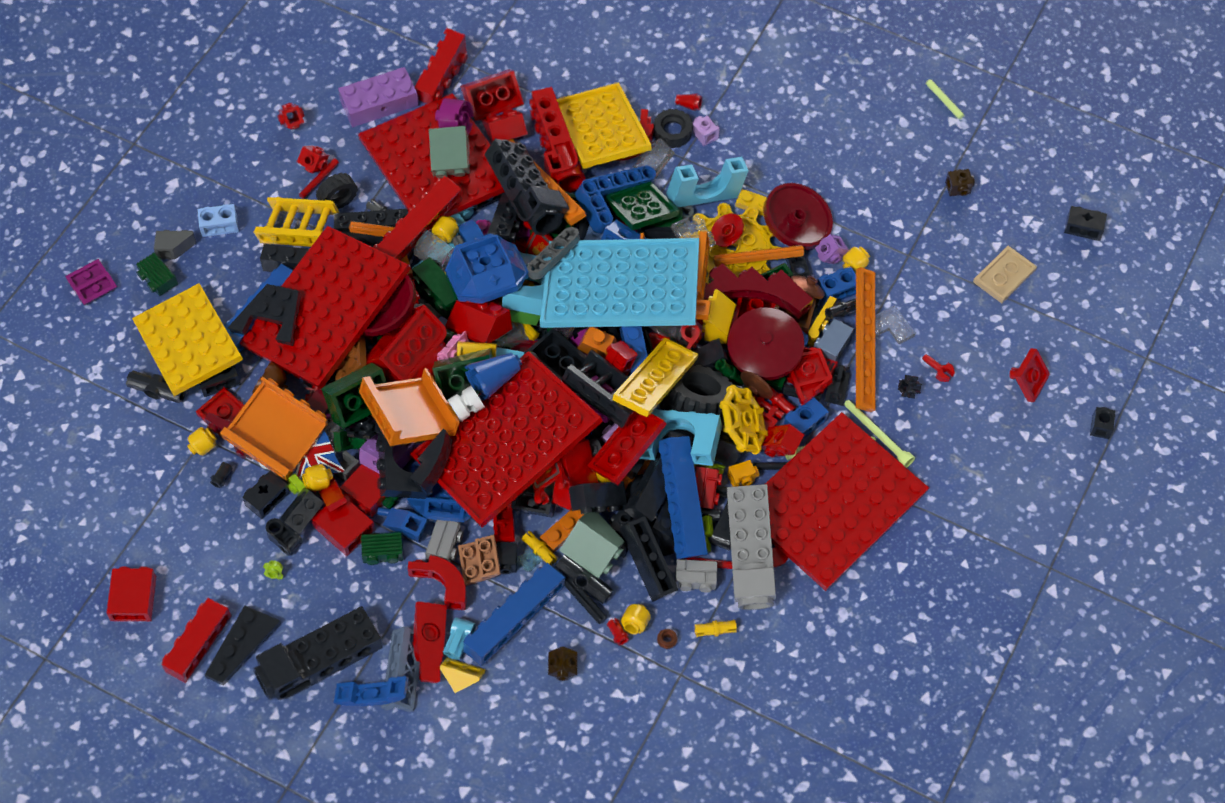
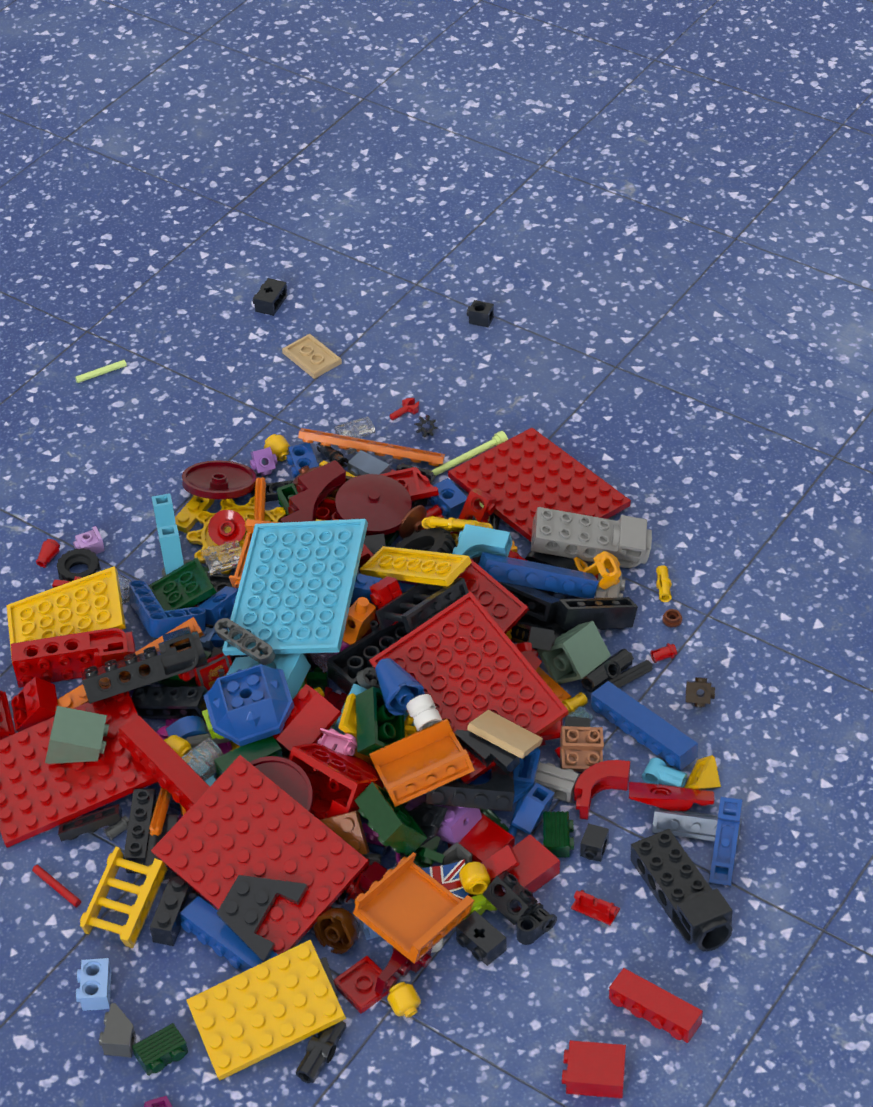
camera: 80 degrees left, 15 degrees down
(220, 476) = (448, 983): black pin -> none
(243, 638) = (659, 967): black wing -> none
(273, 569) = (574, 932): lime plate -> none
(304, 586) = (595, 907): none -> red hinge
(313, 158) = (32, 883): red brick -> none
(338, 182) = (91, 855): black tyre -> none
(373, 579) = (594, 842): none -> black brick
(377, 187) = (90, 823): none -> black plate
(443, 471) = (505, 734): none -> tan tile
(454, 114) = (26, 731): magenta brick -> none
(635, 618) = (652, 636): yellow head -> none
(711, 567) = (602, 562): none -> light orange piece
(729, 371) = (392, 539): dark green pin -> none
(959, 182) = (206, 367): dark brown brick -> none
(1031, 375) = (428, 346): red tile -> none

